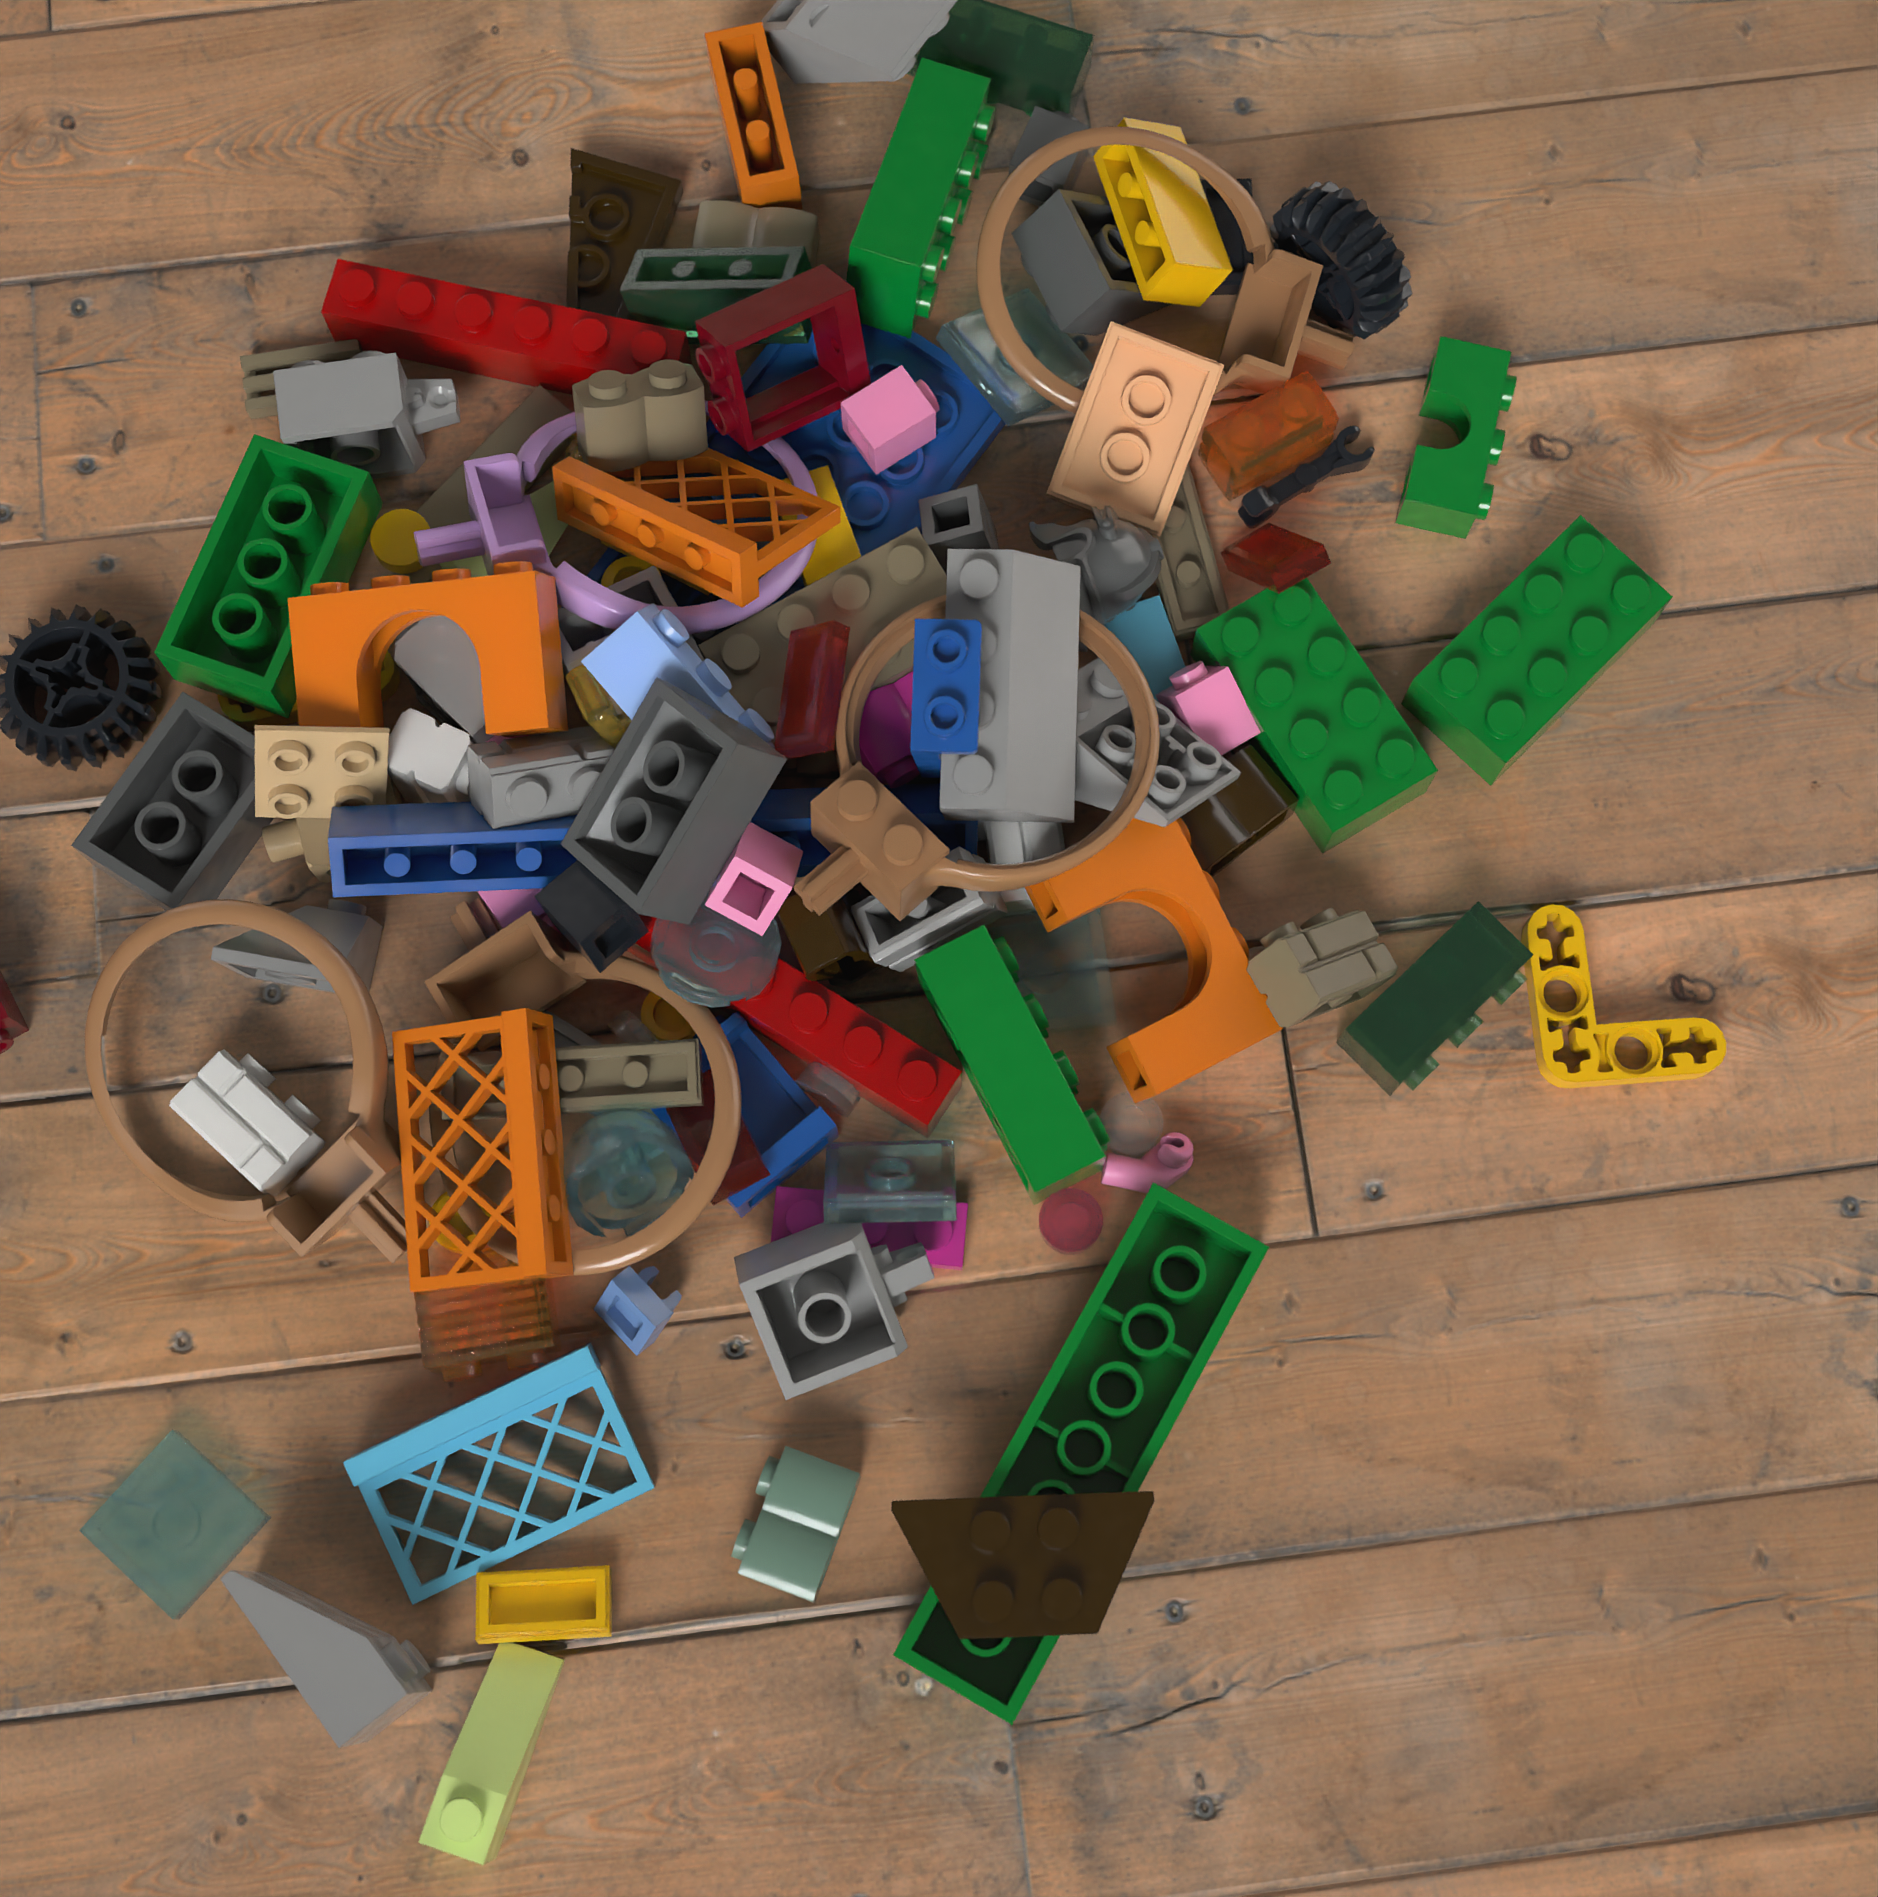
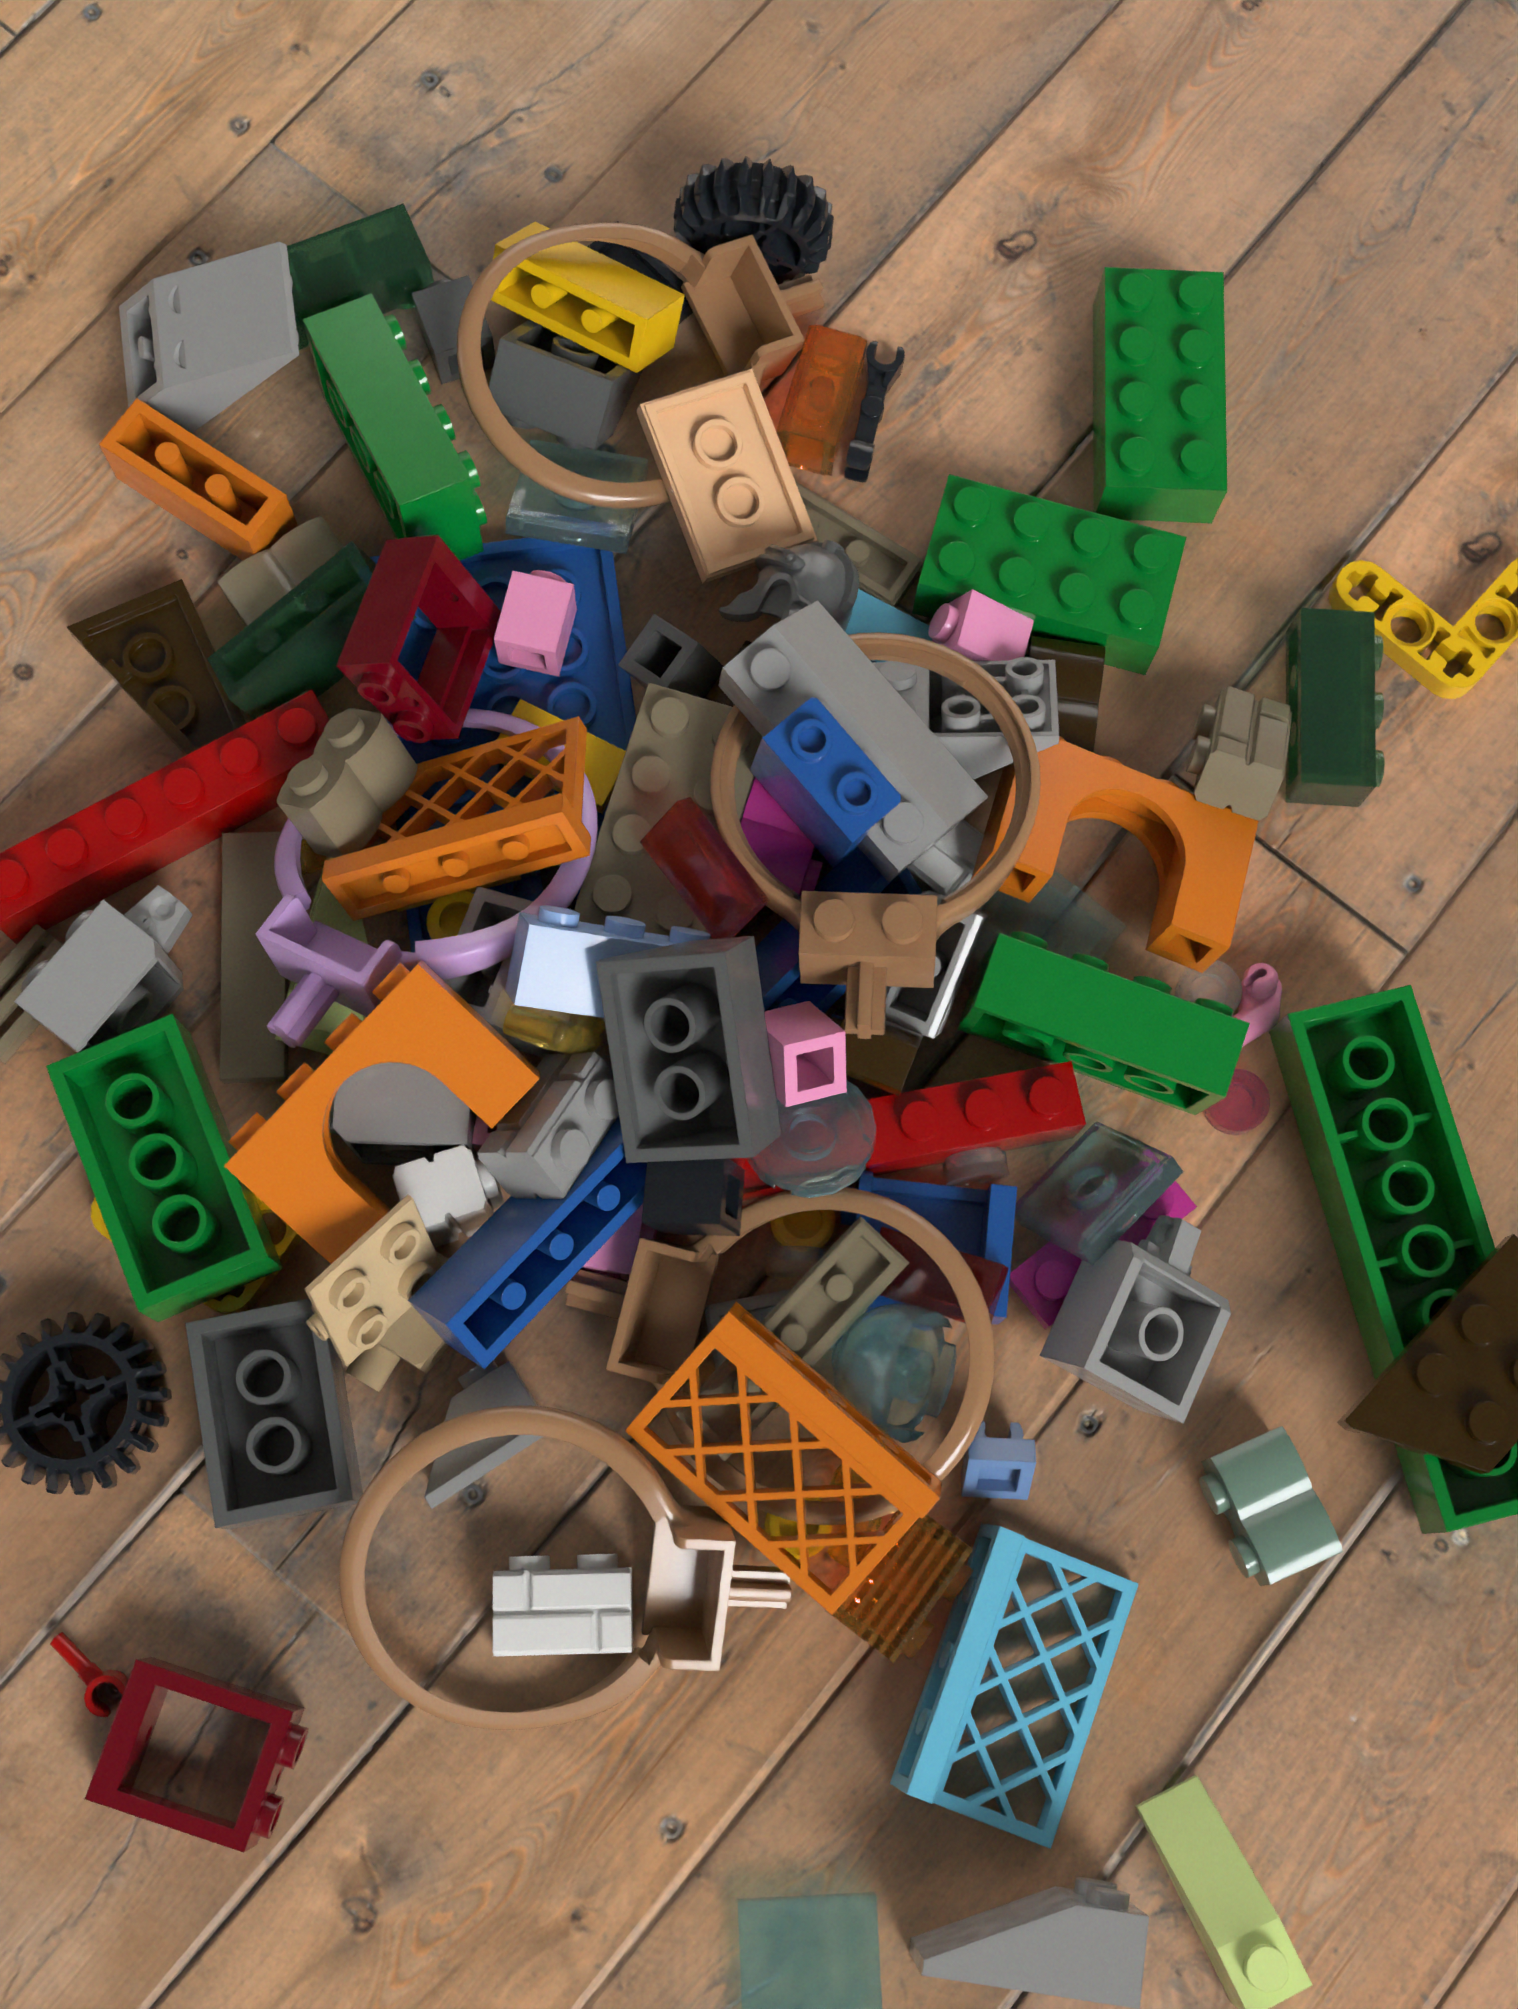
camera: 50 degrees left, 0 degrees up
(394, 540) = (236, 1049): yellow tile -> none
(543, 1604) = (1145, 1750): yellow tile -> none
(1275, 557) = (918, 483): clear red tile -> none
(1465, 391) = (933, 249): green arch -> none

